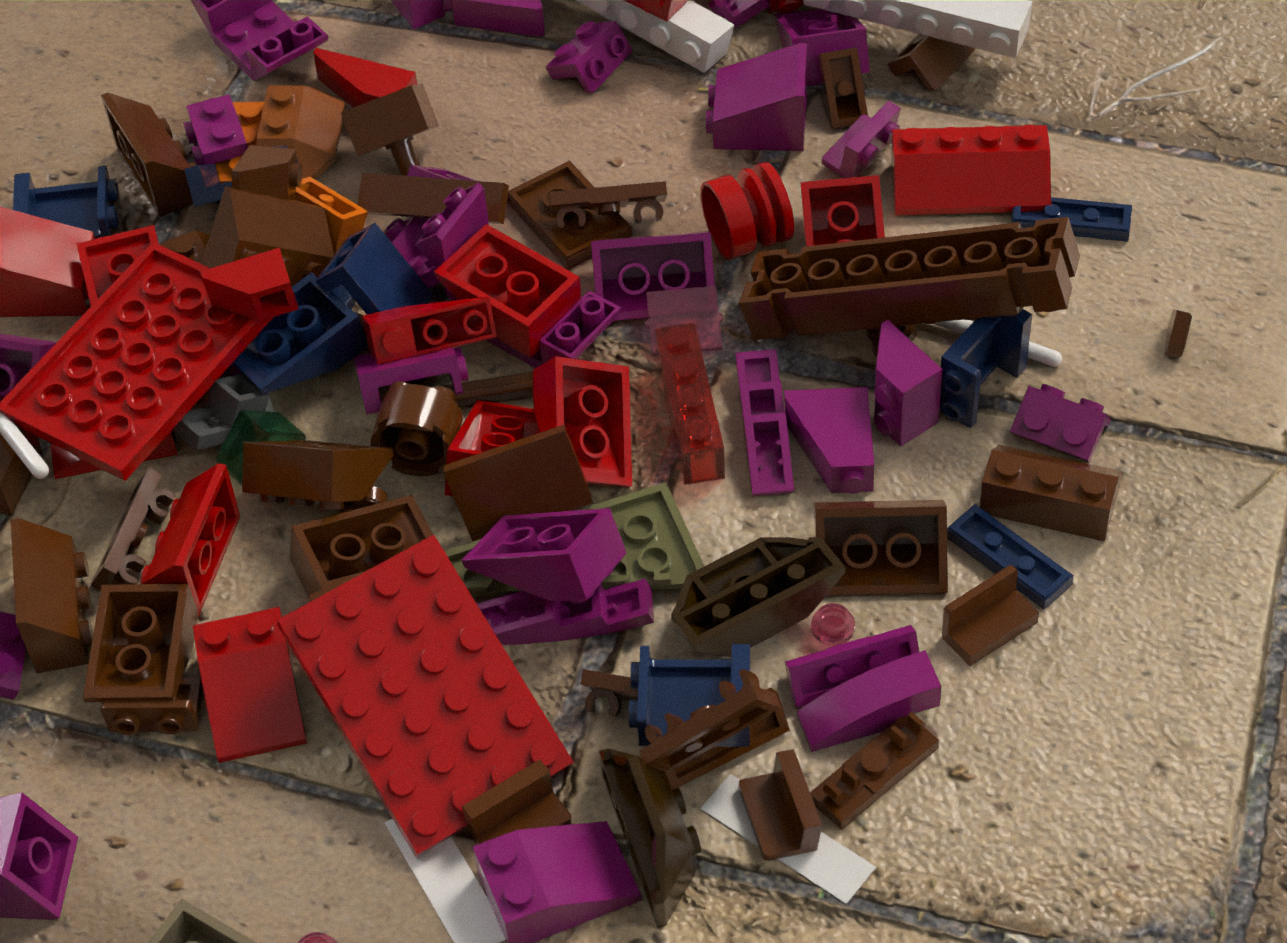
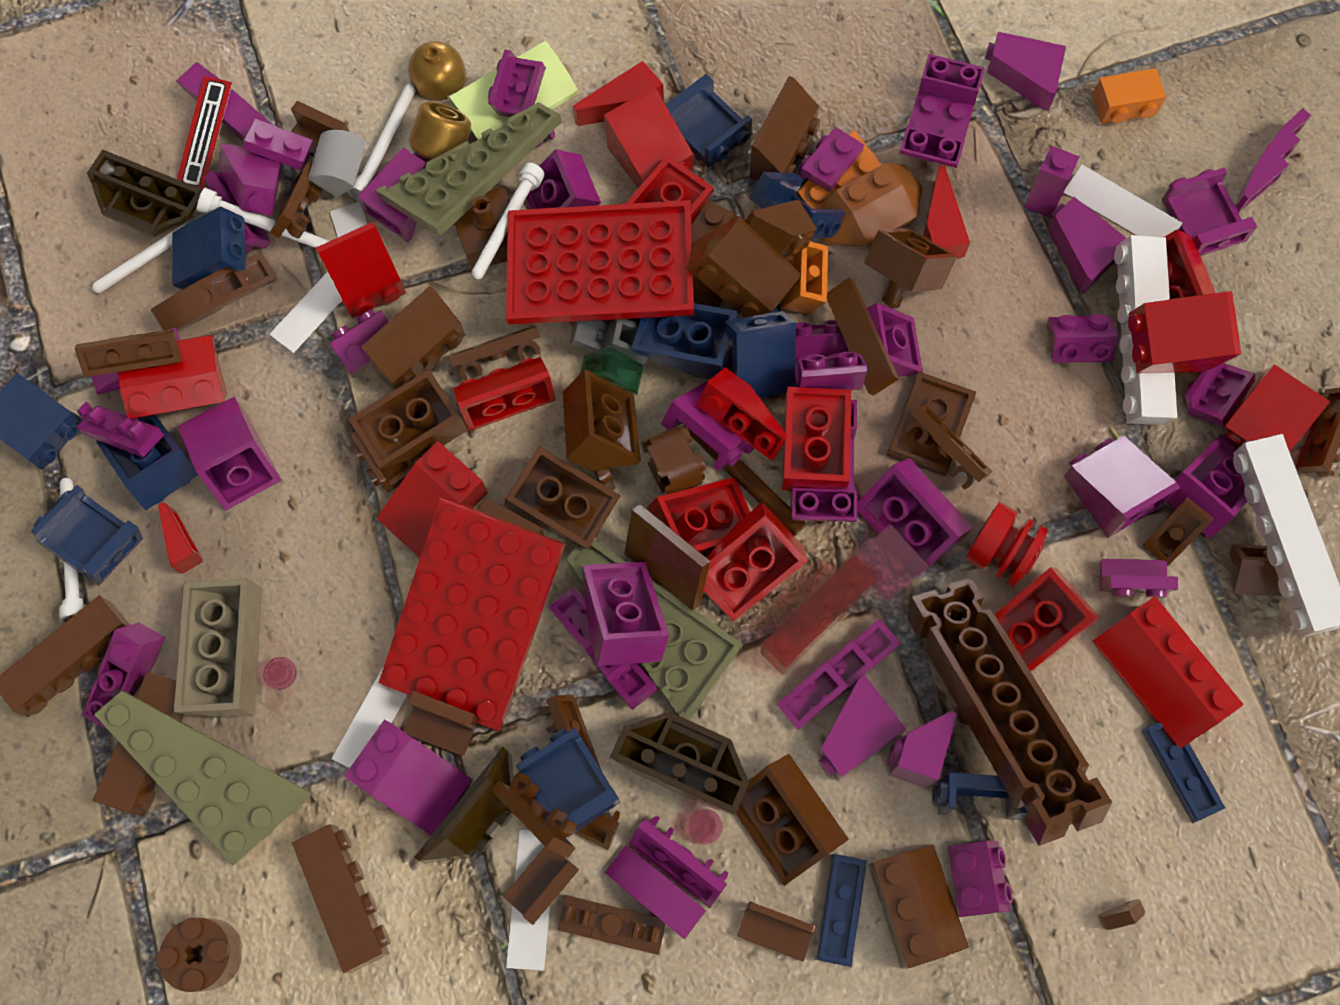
camera: 55 degrees right, 20 degrees up
(252, 286) = (688, 293): red slope -> none

